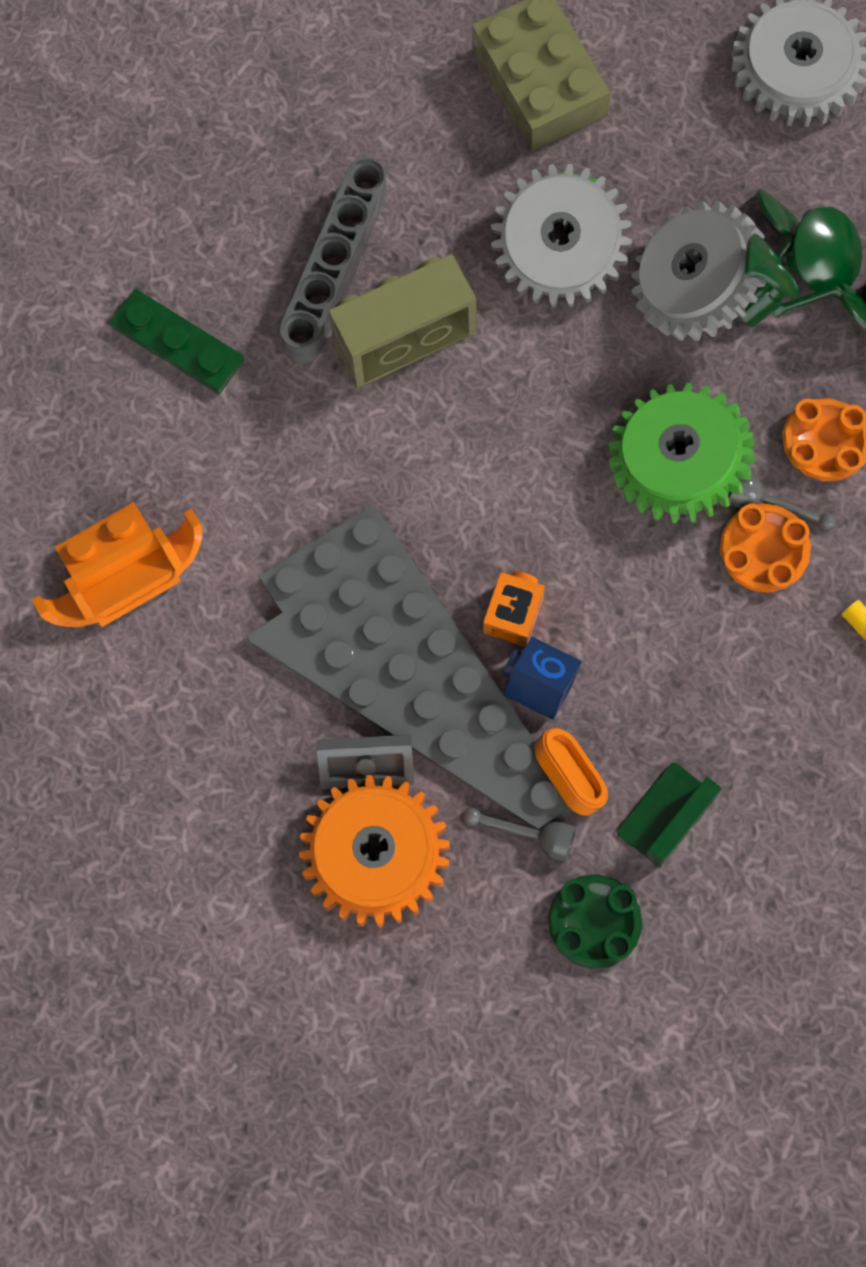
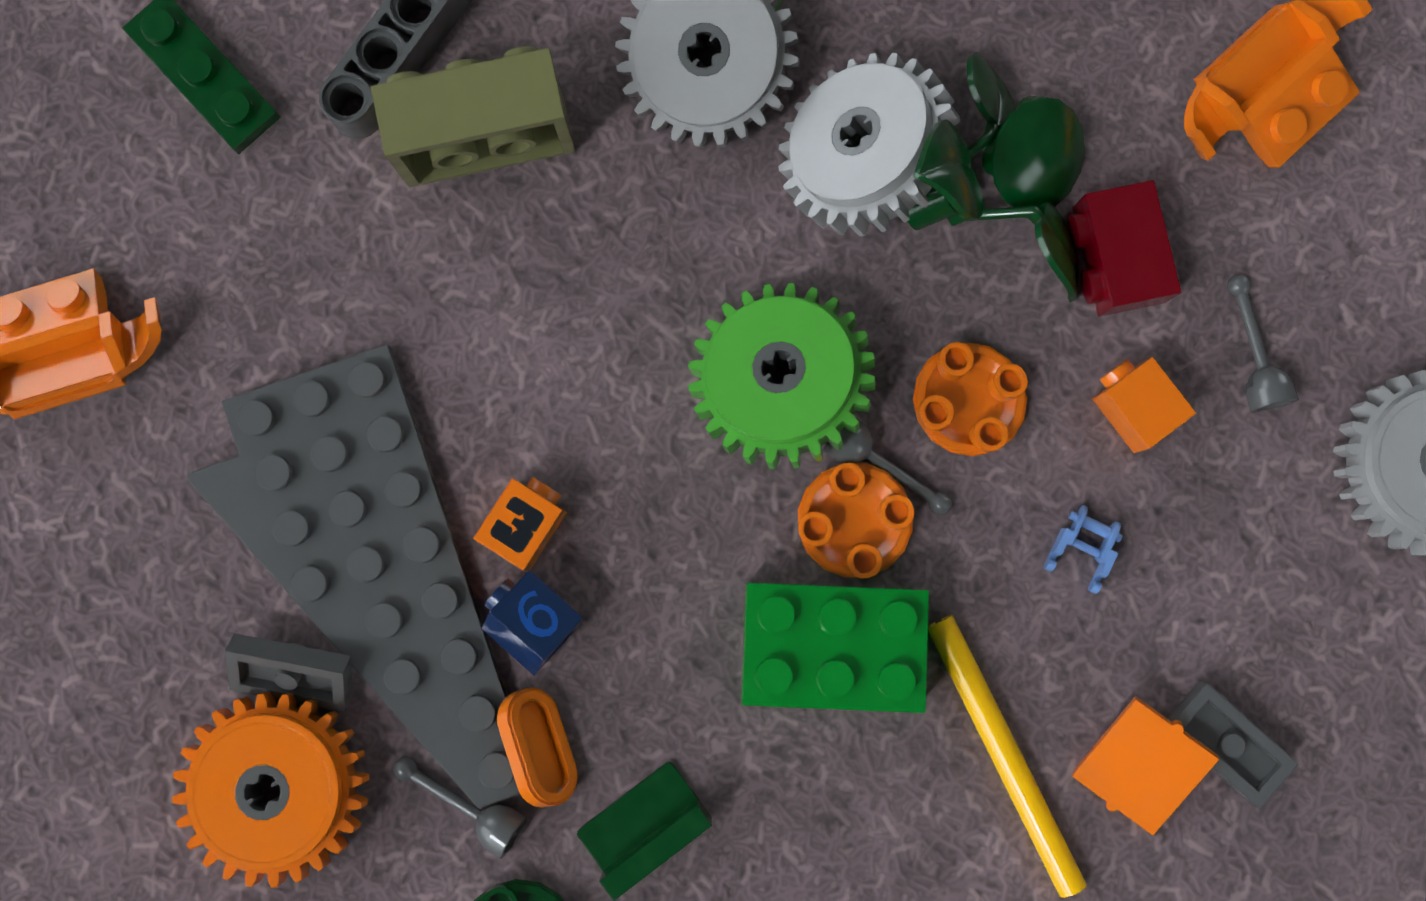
camera: 10 degrees right, 10 degrees up
(776, 639) = (835, 647): none -> green brick

